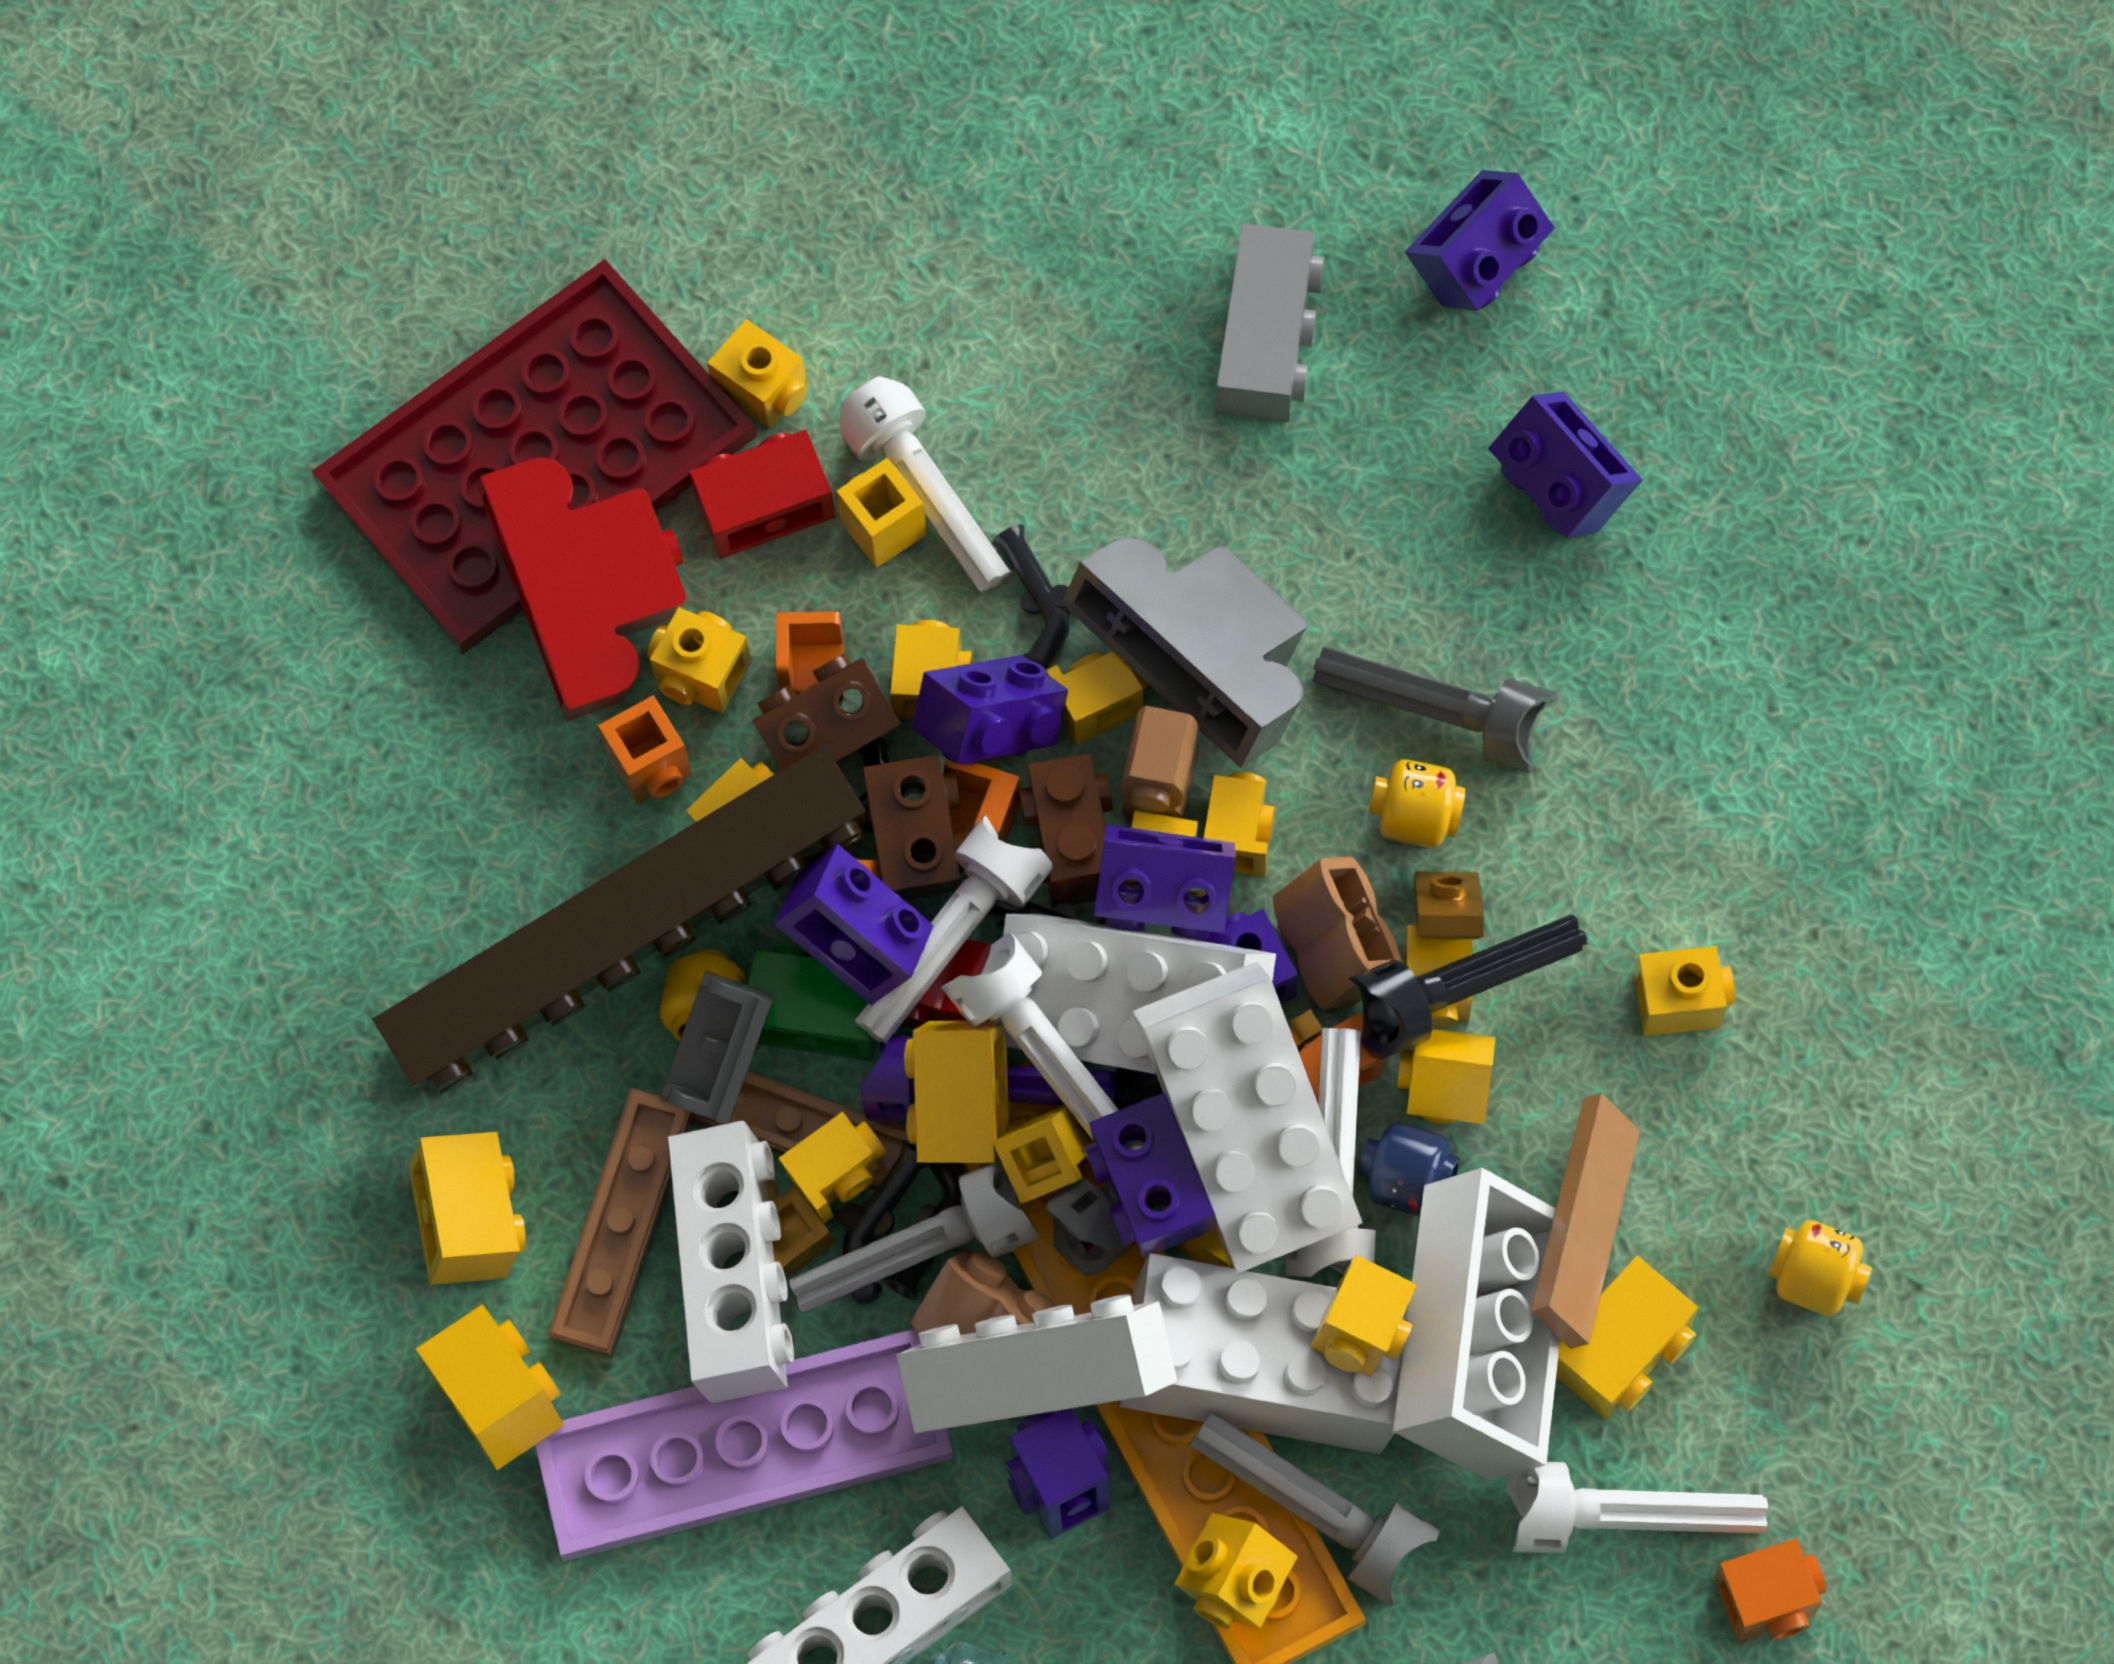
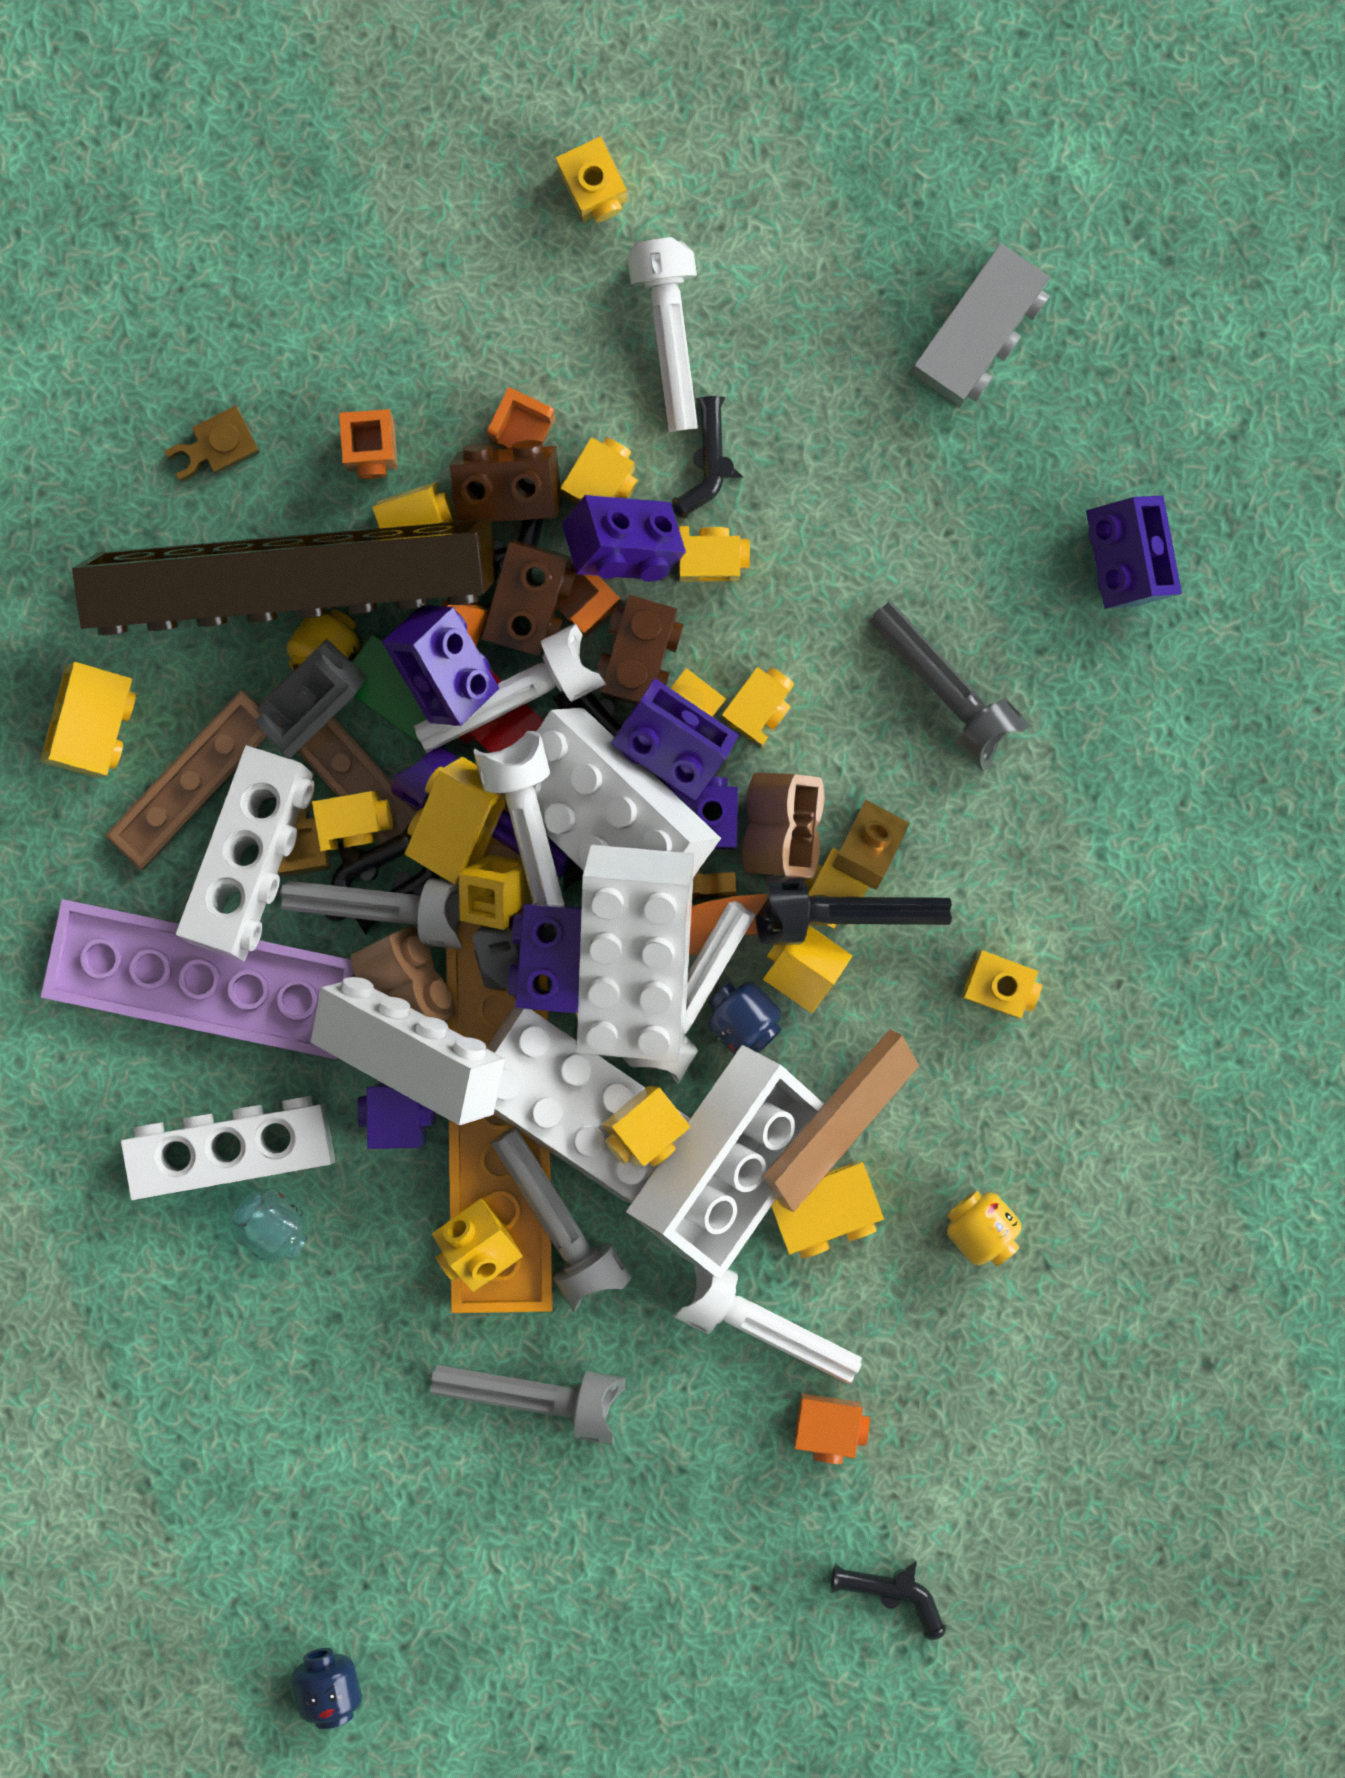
camera: 25 degrees right, 20 degrees up
(471, 841) = (221, 442): none -> pearl gold plate
(492, 1386) = (46, 858): yellow brick -> none
(571, 382) = (401, 160): dark red plate -> none
(583, 577) = (385, 286): red brick -> none
(698, 659) = (449, 402): yellow brick -> none
(762, 493) = (549, 276): red brick -> none
(881, 512) = (624, 339): yellow brick -> none
(1160, 763) = (719, 644): medium nougat brick -> none
(1199, 636) = (799, 558): brick -> none
(1417, 803) = (891, 756): yellow head -> none
(1480, 240) = (1169, 342): dark purple brick -> none

